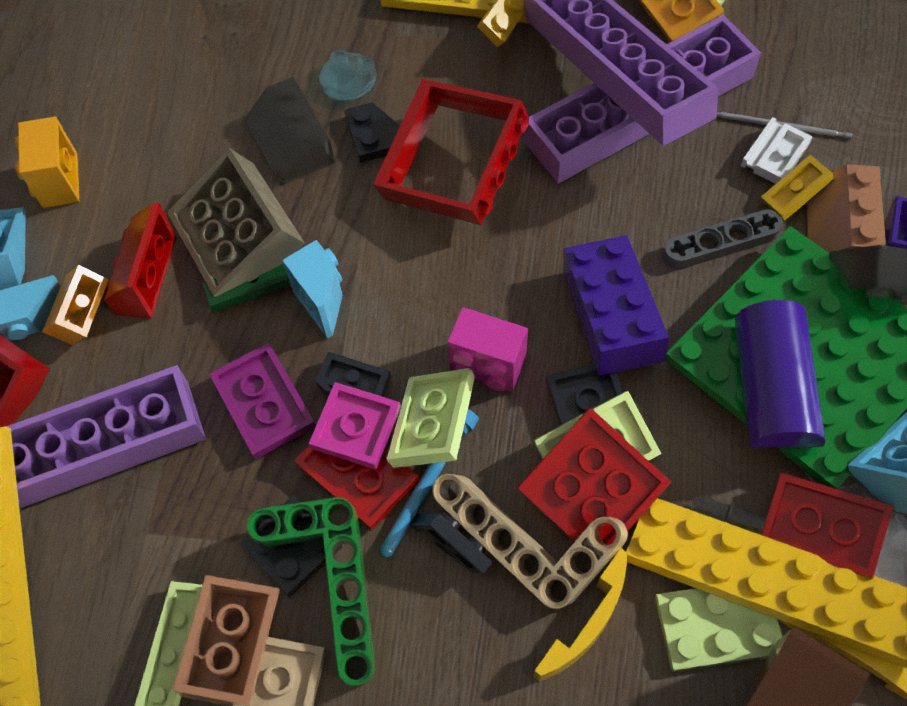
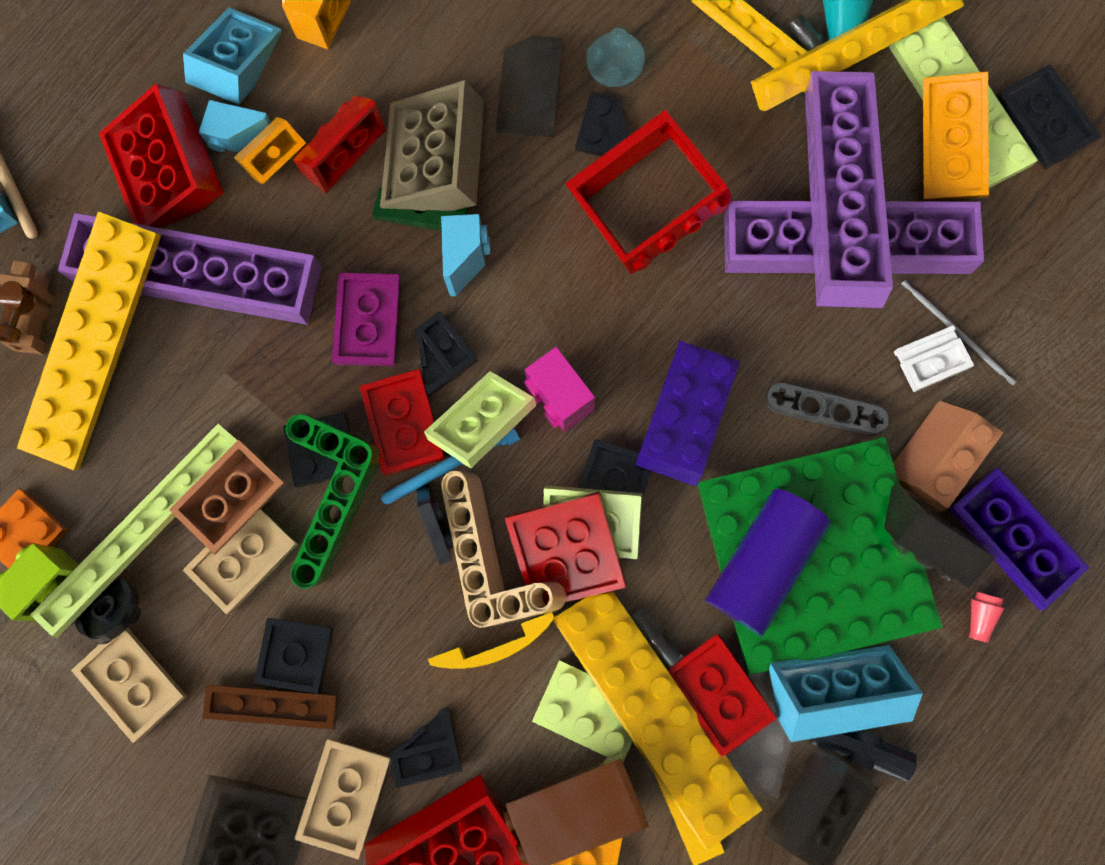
camera: 35 degrees right, 15 degrees up
(355, 425) = (418, 388): dark pink plate -> none
(797, 187) = (922, 404): yellow plate -> none

